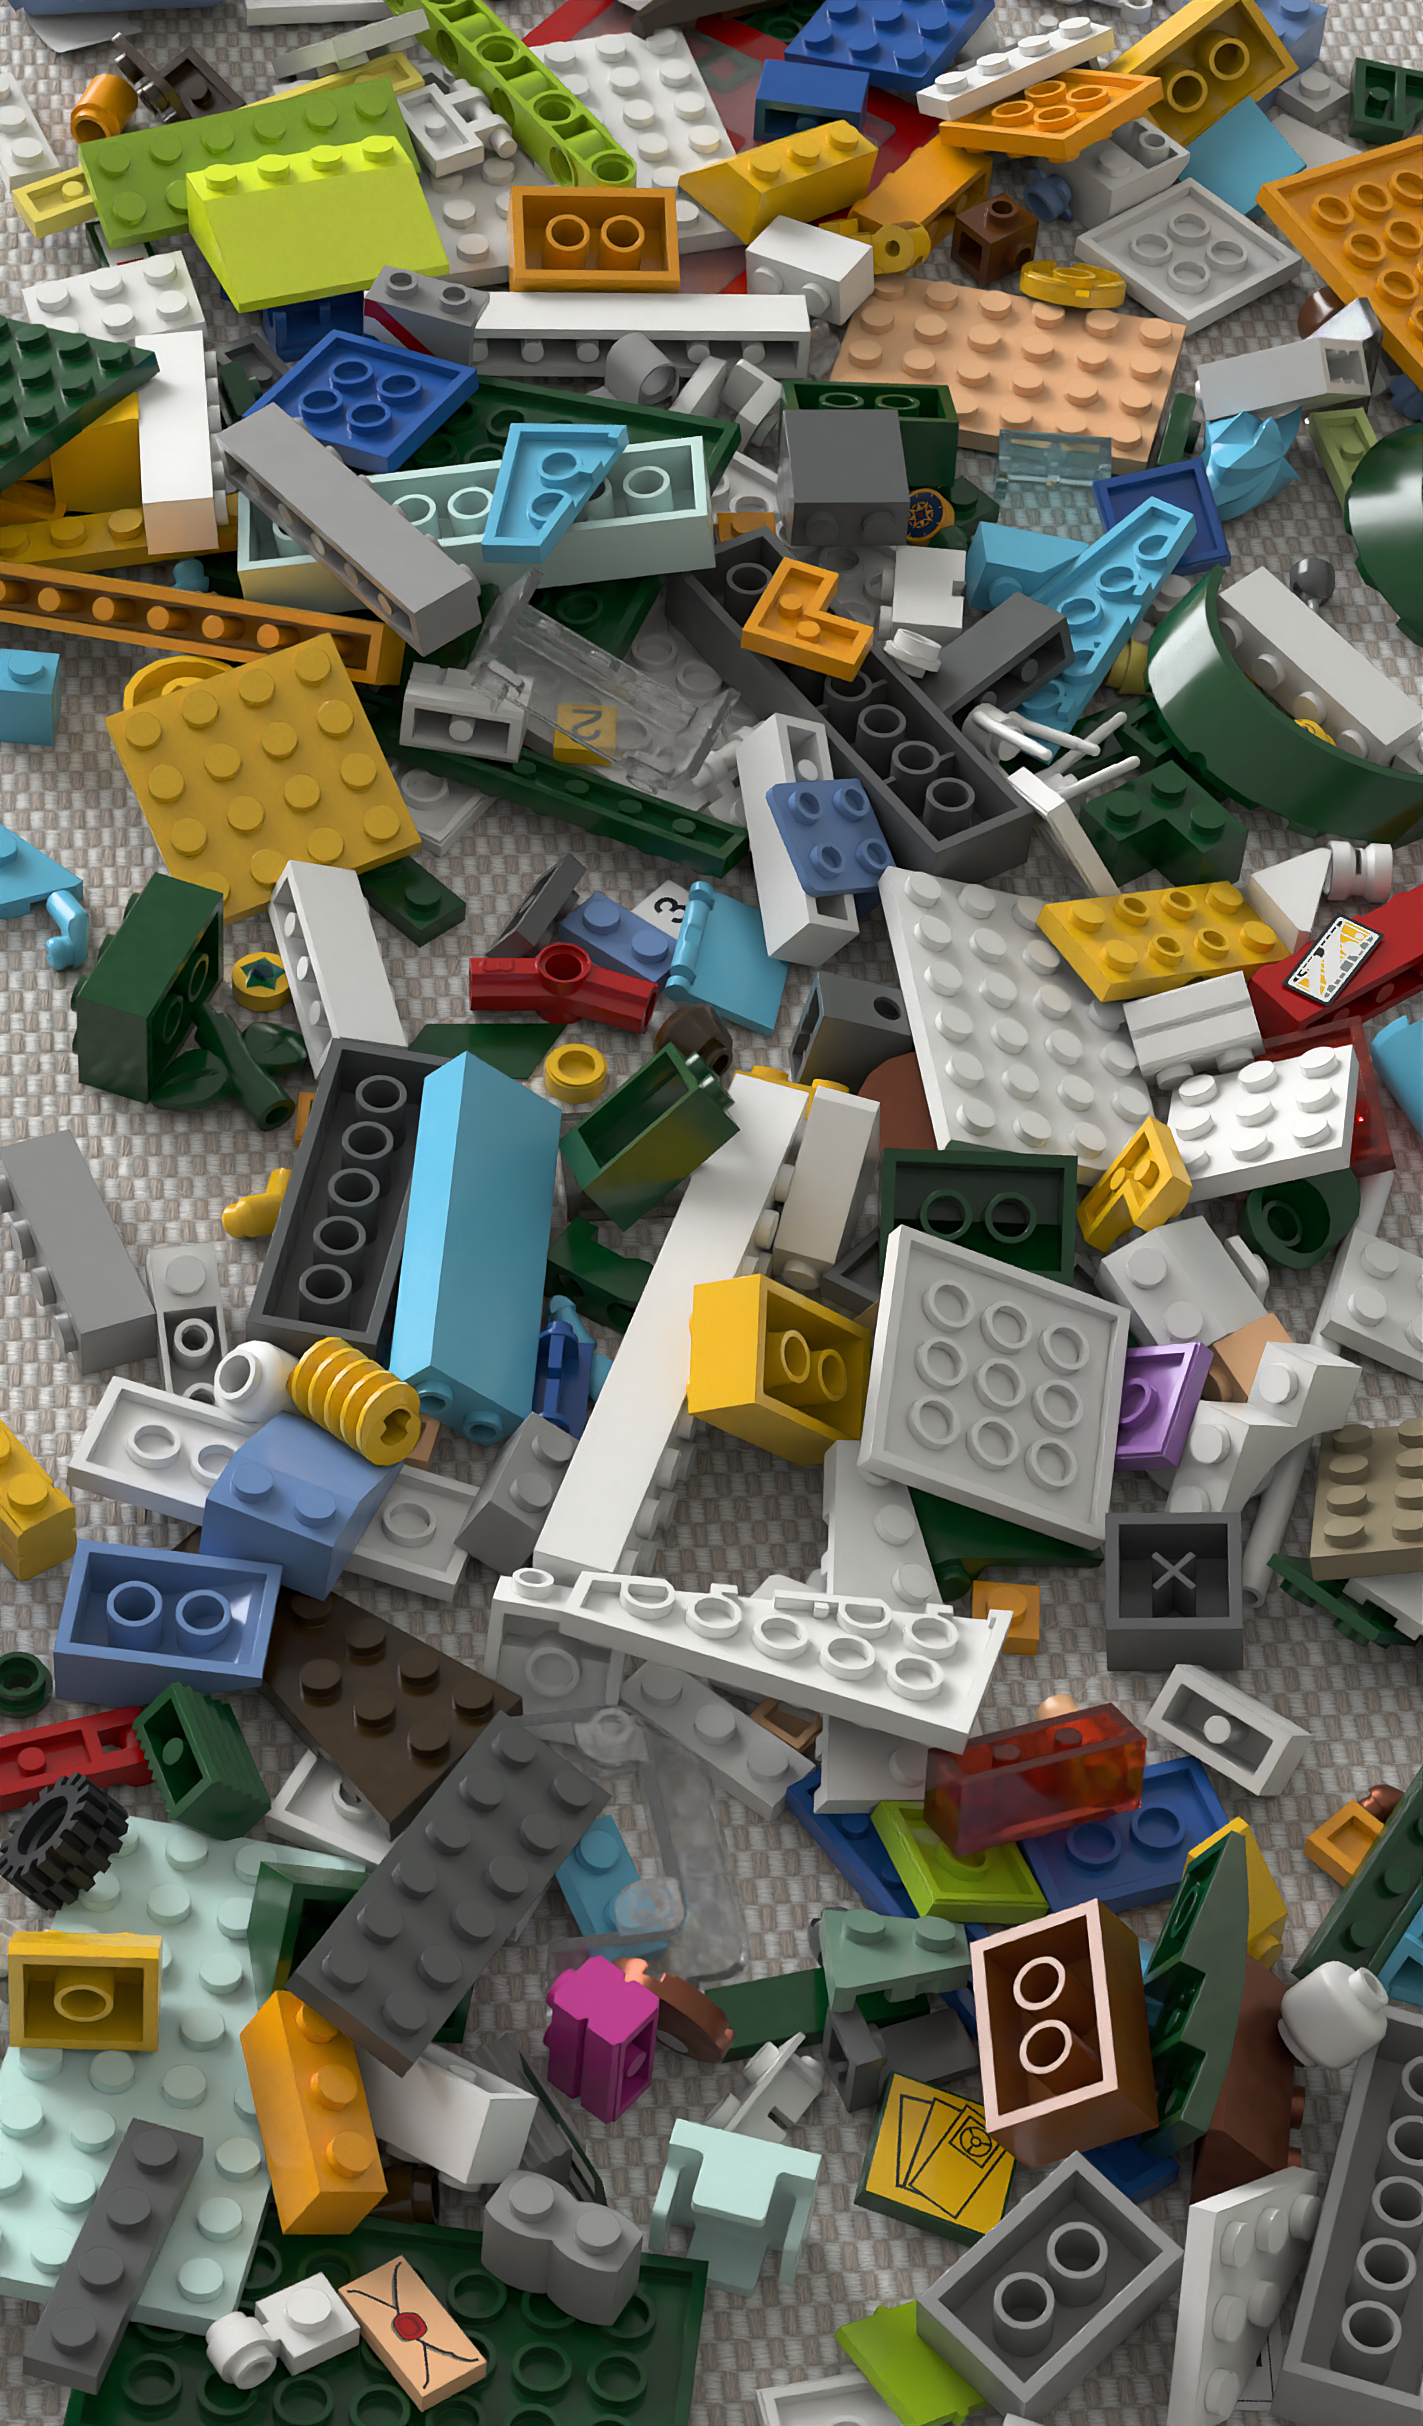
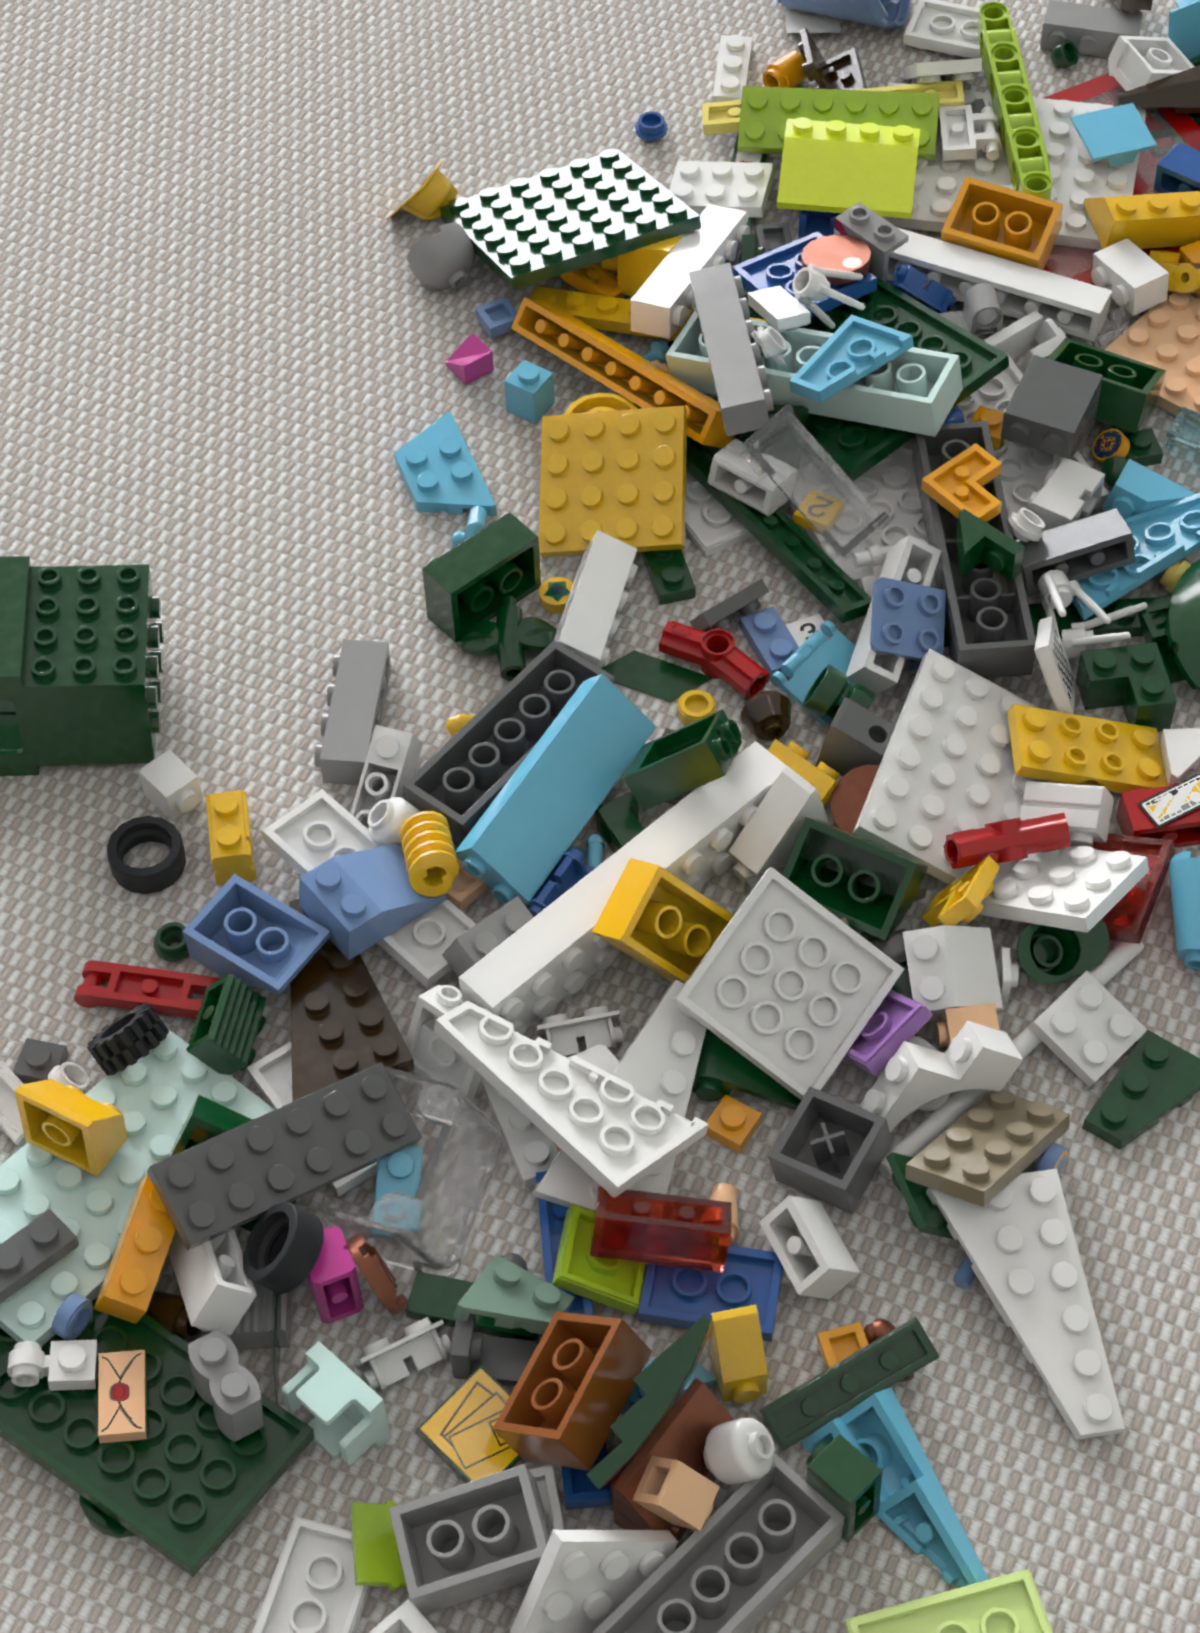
camera: 35 degrees right, 5 degrees up
(265, 2255) = (72, 1316): none -> medium blue tile
(381, 450) = (779, 308): none -> white tile
(400, 358) = (838, 253): none -> tile
(413, 500) = (771, 343): none -> white plate
(414, 402) = (812, 285): none -> white plant
(514, 362) = (911, 282): none -> blue hinge
(578, 2027) = (283, 1247): none -> black tyre
(669, 70) = (1114, 134): none -> medium azure piece
(733, 1560) = (594, 1027): none -> white hinge
(775, 981) = (831, 689): none -> dark green wheel
(882, 691) = (985, 544): none -> dark green slope
(1155, 1088) = (1007, 840): none -> red piece
(1291, 2102) = (676, 1493): none -> light nougat brick

